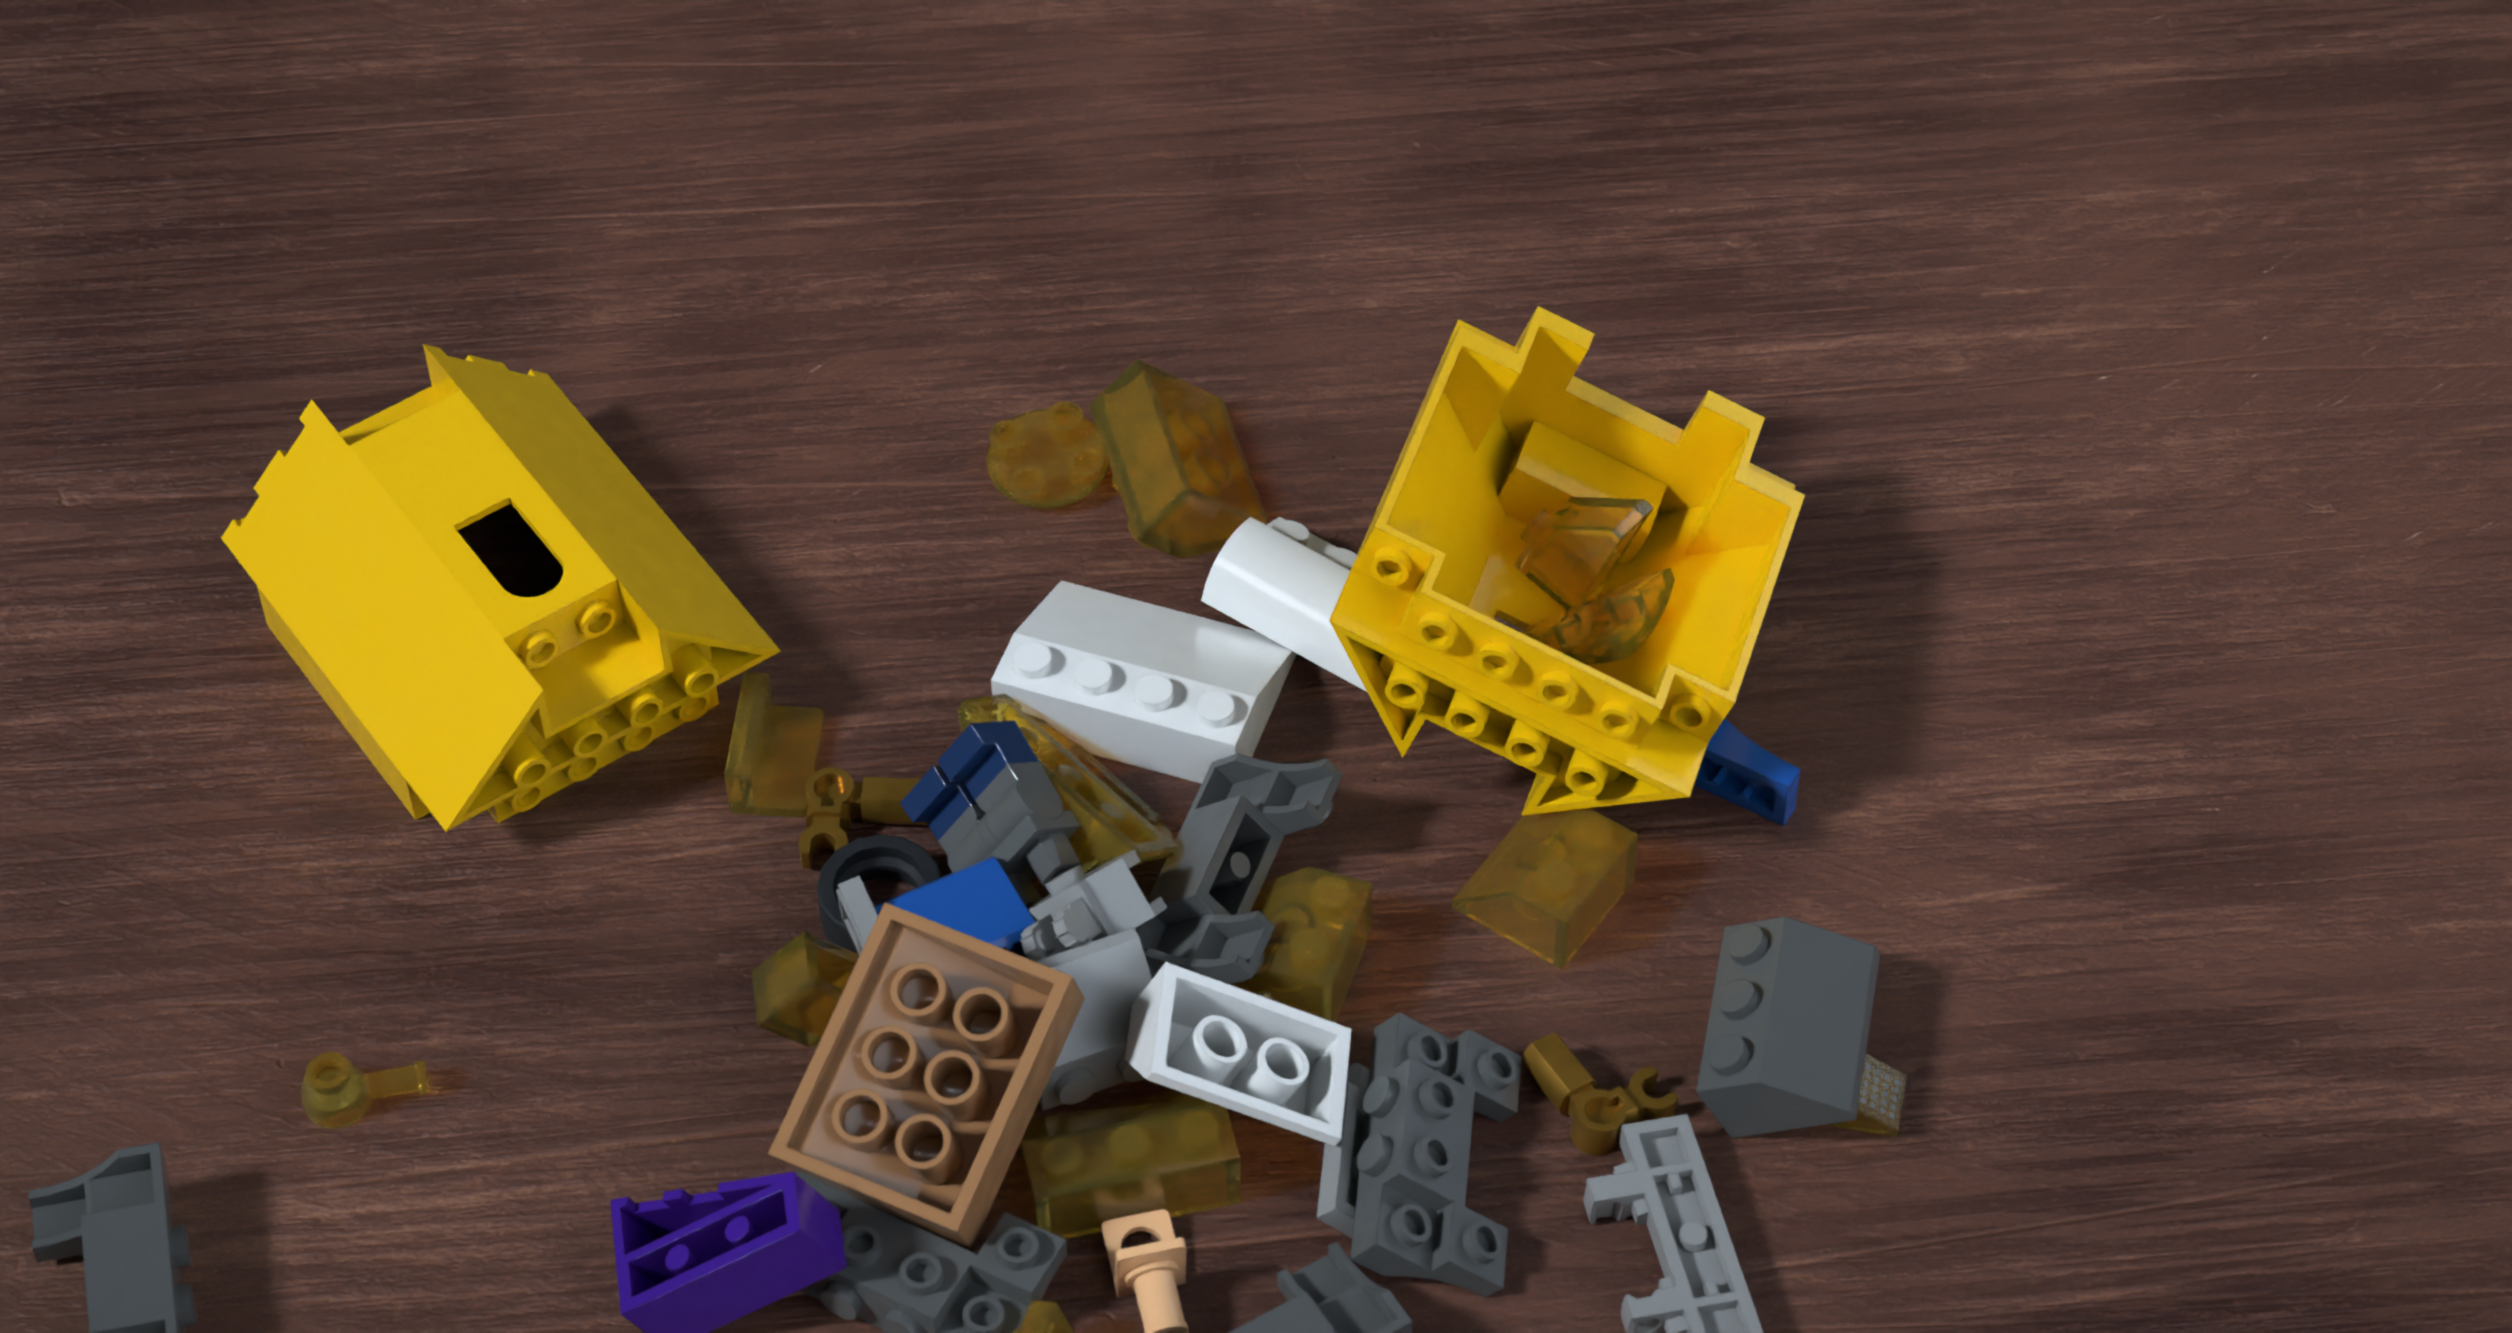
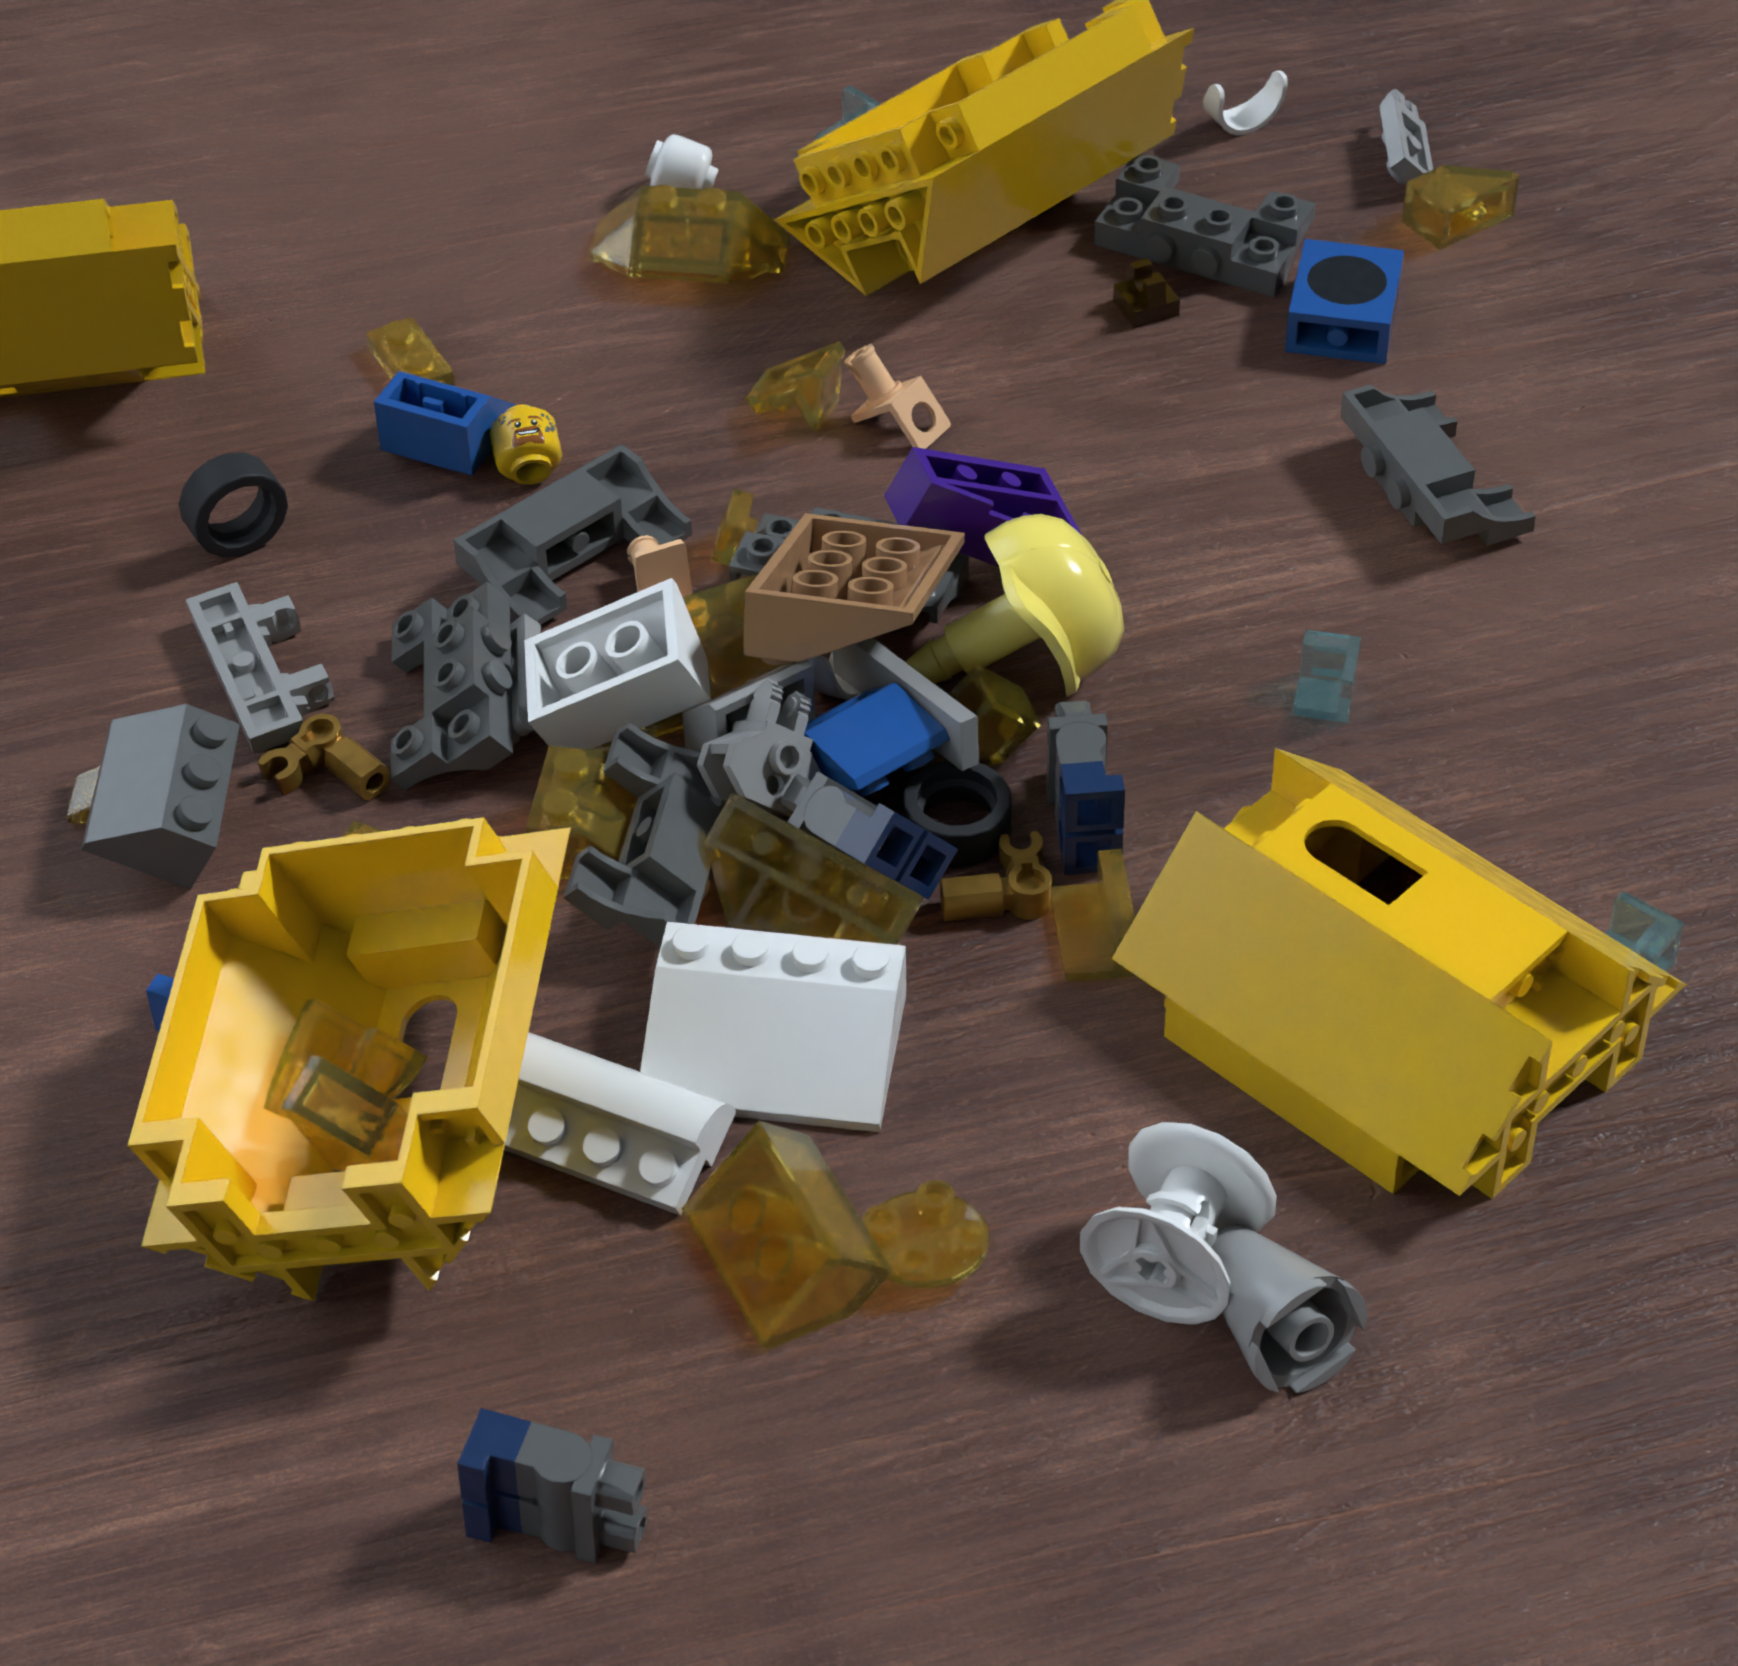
camera: 170 degrees right, 5 degrees down
(230, 629) = (1646, 930): none -> clear light blue panel
(350, 1093) = (1345, 616): clear yellow bar -> none
(388, 1011) = (1327, 676): none -> clear light blue panel
(693, 1056) = (1052, 592): none -> light yellow piece
(739, 860) = (1085, 799): none -> dark blue hips
(751, 320) = (1287, 1311): none -> light grey cone
(793, 392) = (1164, 1255): none -> white piece
(1434, 255) = (549, 1487): none -> dark grey hips

